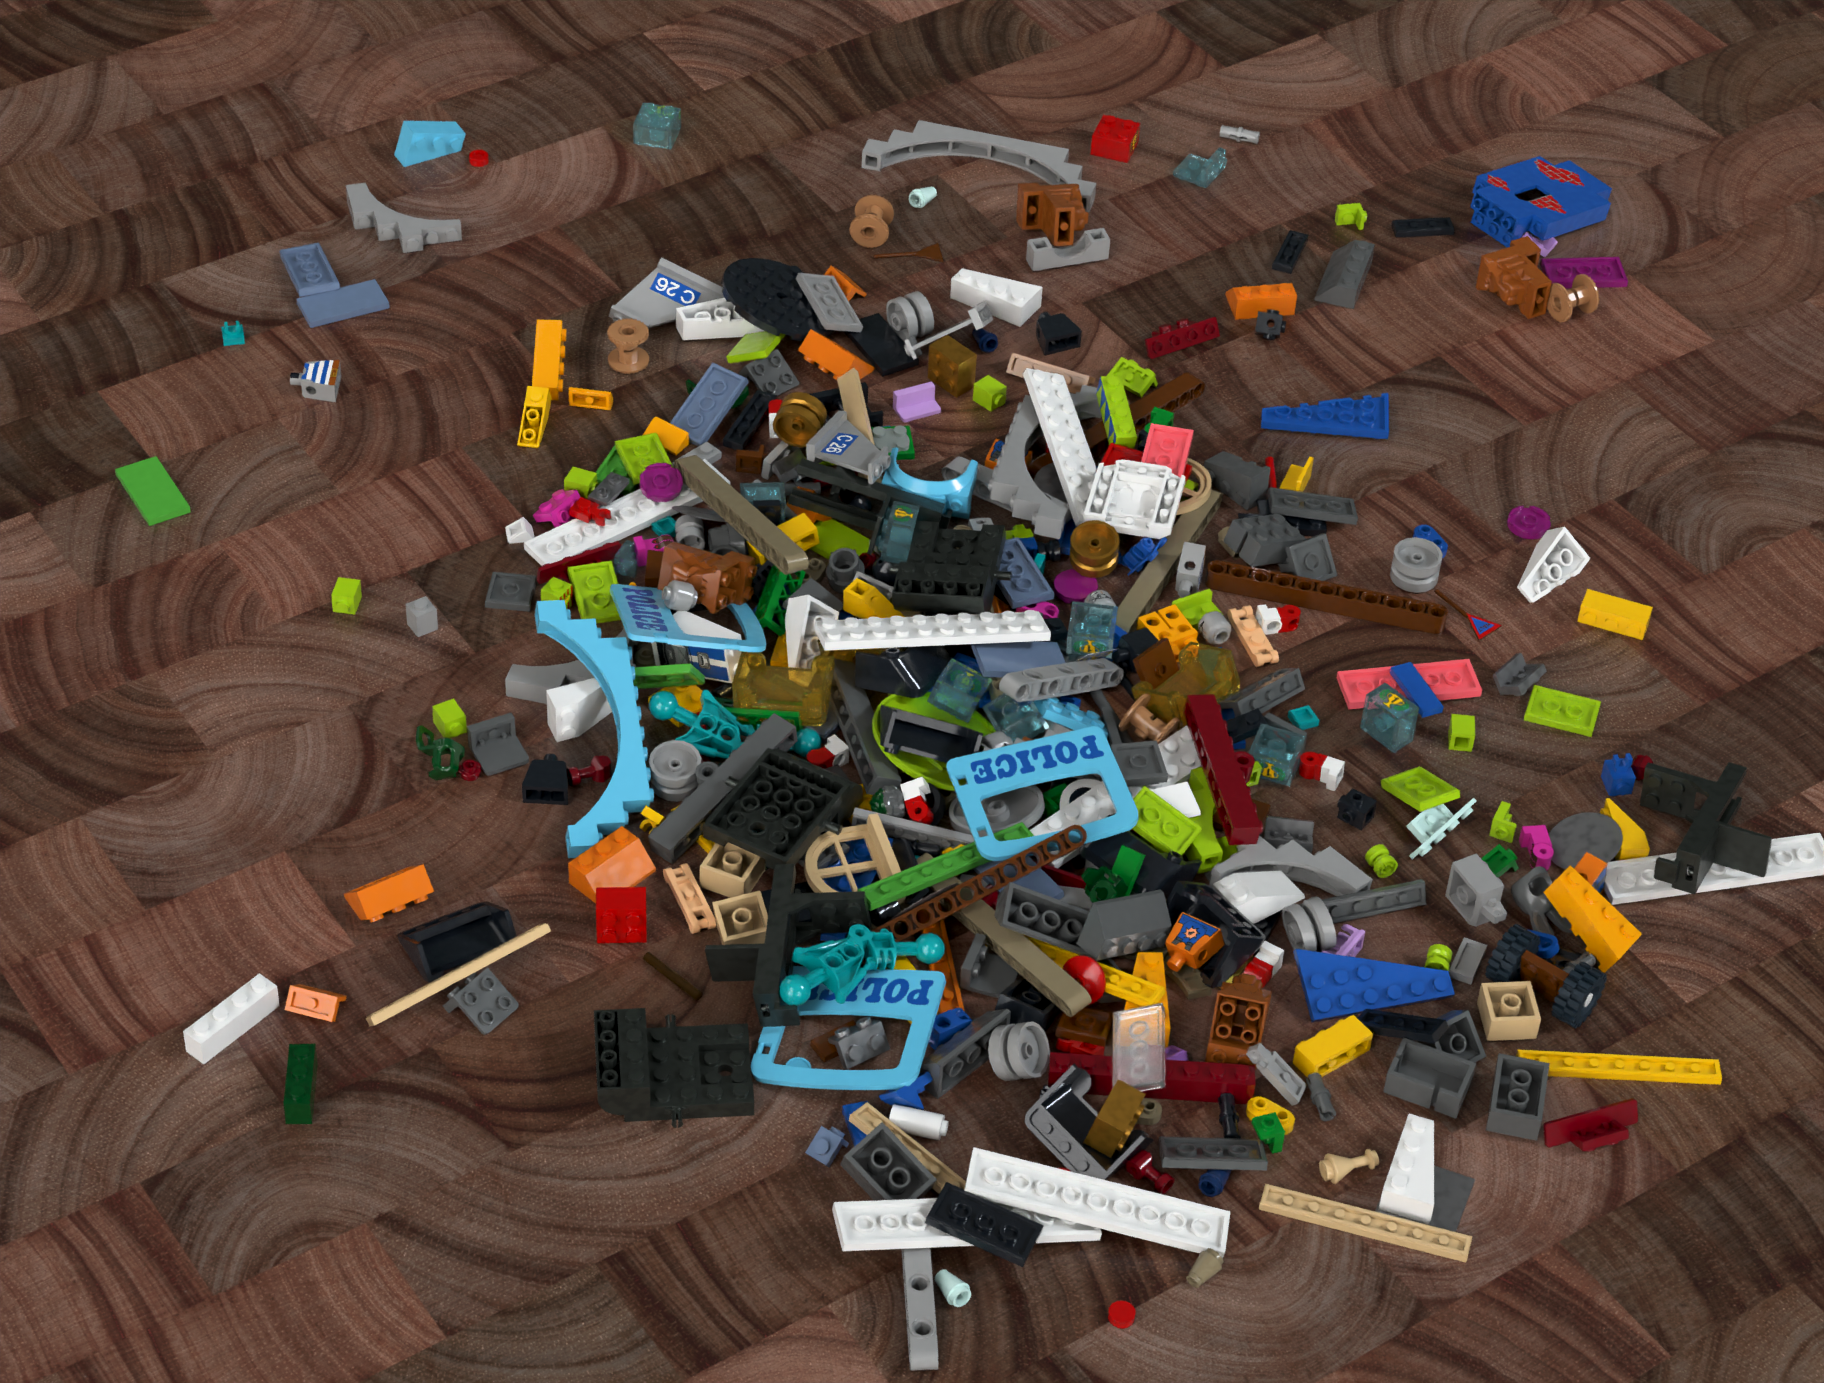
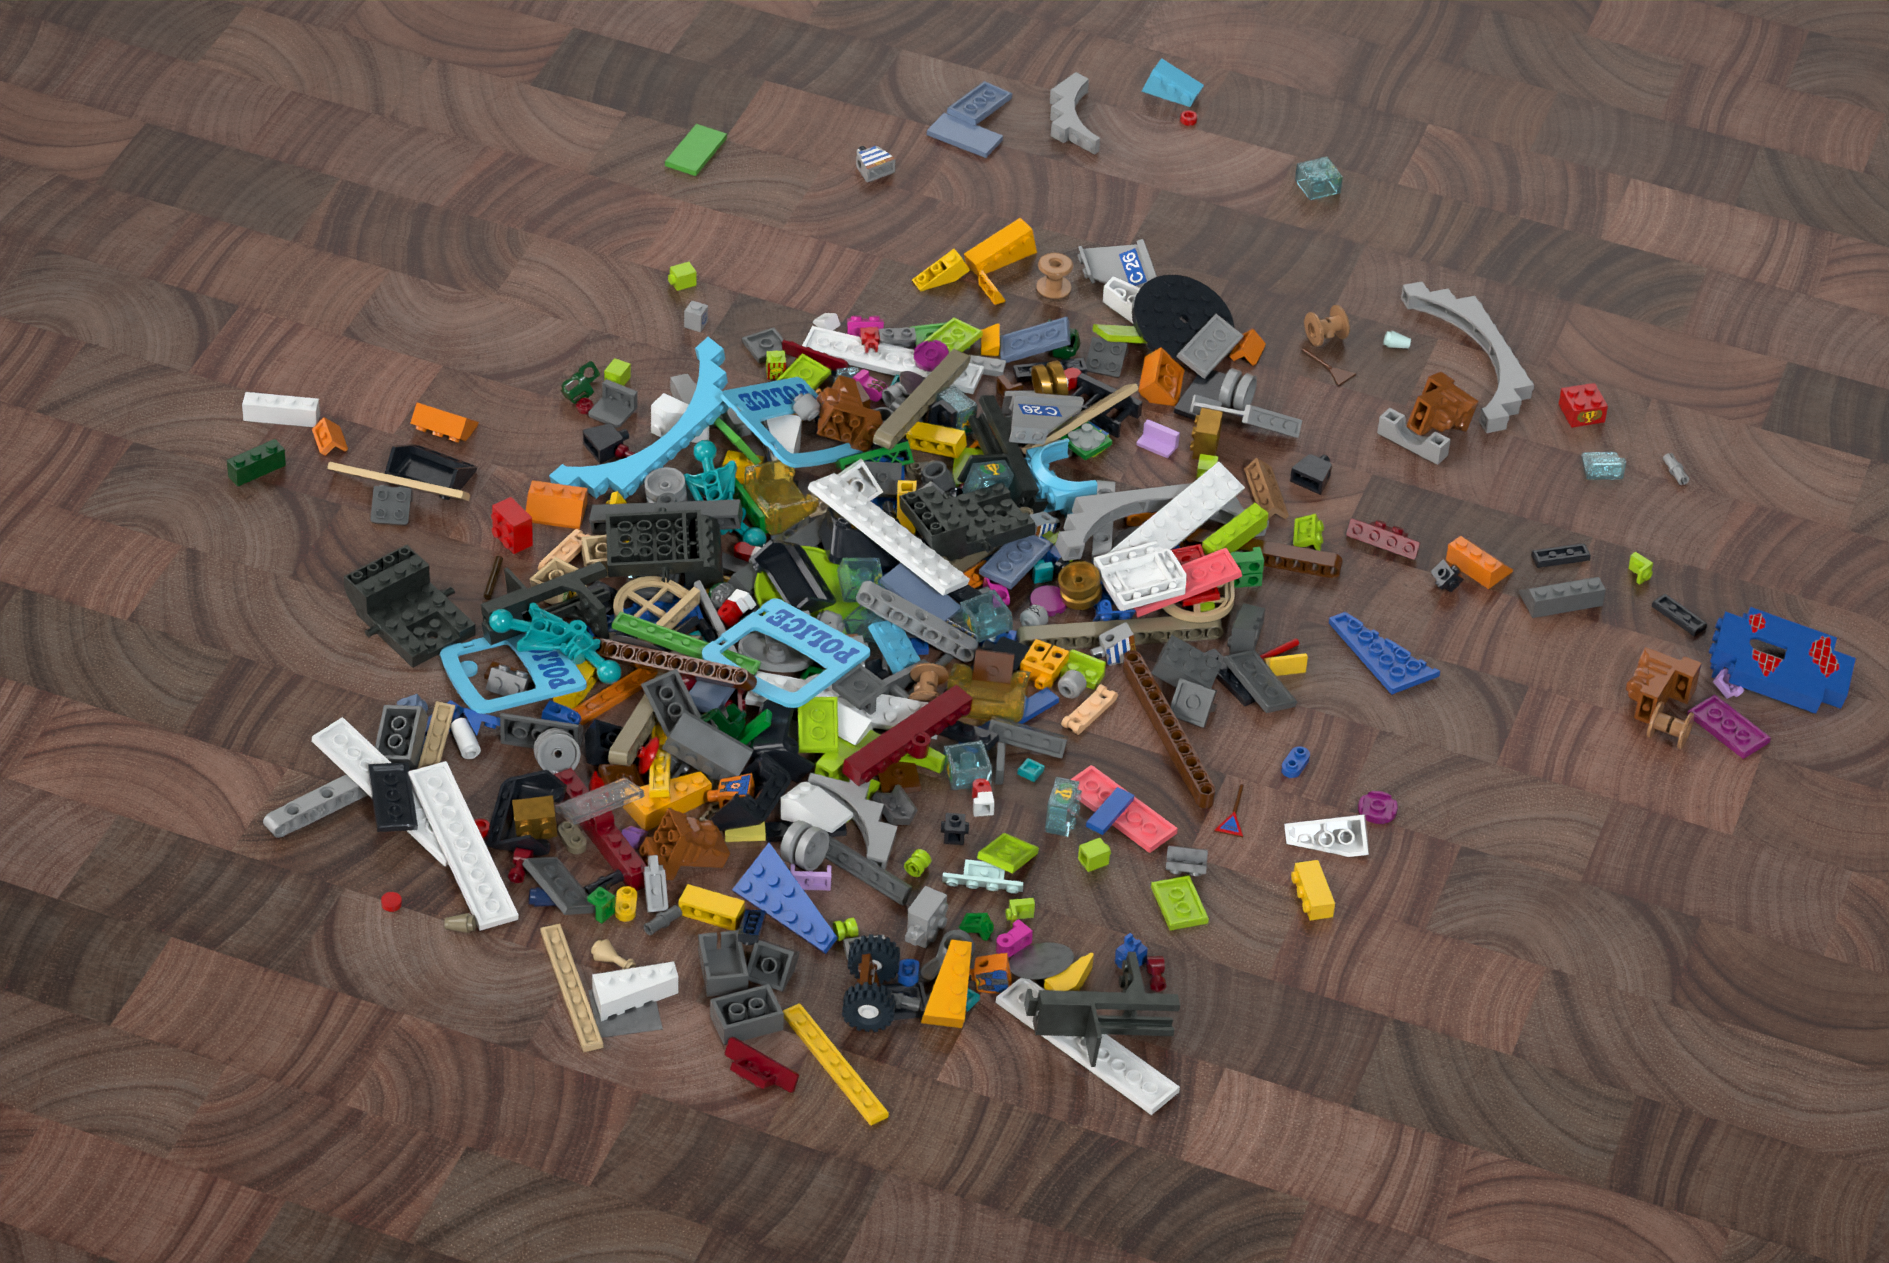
camera: 55 degrees right, 0 degrees up
(233, 334) = (879, 105): teal tile -> none
(581, 480) = (897, 319): lime brick -> none
(953, 1288) = (343, 814): light aqua cone -> none
(984, 971) = (621, 704): dark grey bracket -> none
(986, 340) = (1265, 442): dark blue cone -> none
(1005, 297) = (1321, 427): white wedge -> none
(1266, 962) = (753, 844): leg -> none
(1278, 619) = (1118, 714): leg -> none
(1416, 565) = (1249, 759): light grey wheel -> none
(1508, 1011) = (825, 980): tan brick -> none

